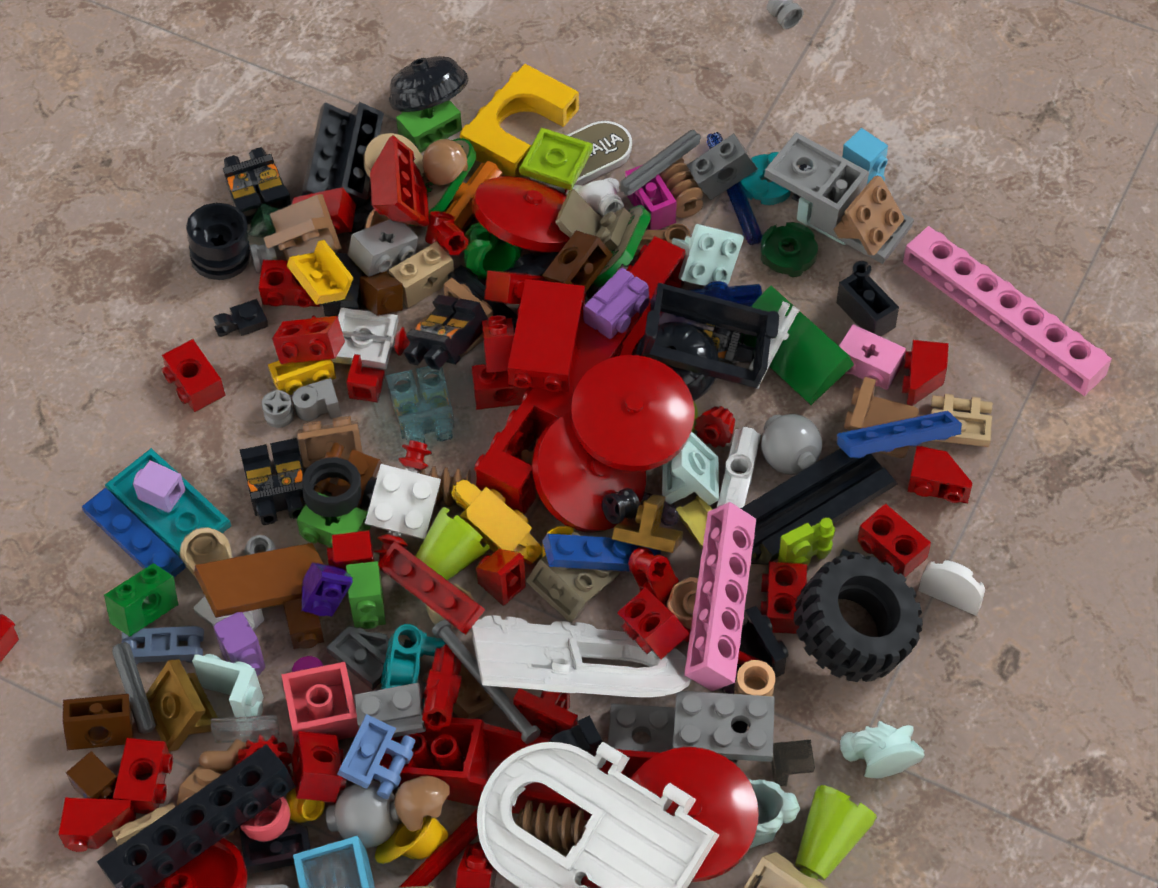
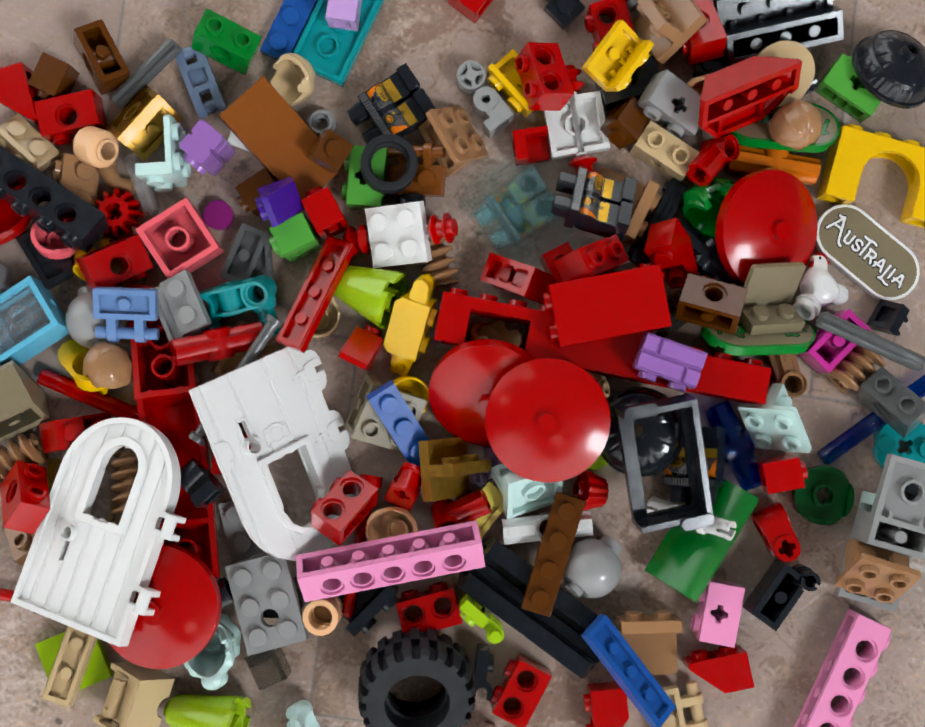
camera: 70 degrees right, 30 degrees up
(188, 751) = (95, 147): none -> light nougat head
(294, 536) = (330, 151): none -> reddish brown brick
(487, 417) = (516, 277): none -> red brick
(556, 159) = (848, 231): lime plate -> none
(620, 505) = (459, 436): black wheel -> none
(643, 150) = (888, 317): none -> black tile
(693, 528) = (463, 510): none -> red piece
(755, 262) = (782, 473): none -> red slope
(765, 464) = (553, 554): none -> reddish brown plate
(809, 291) = (774, 528): none -> red piece

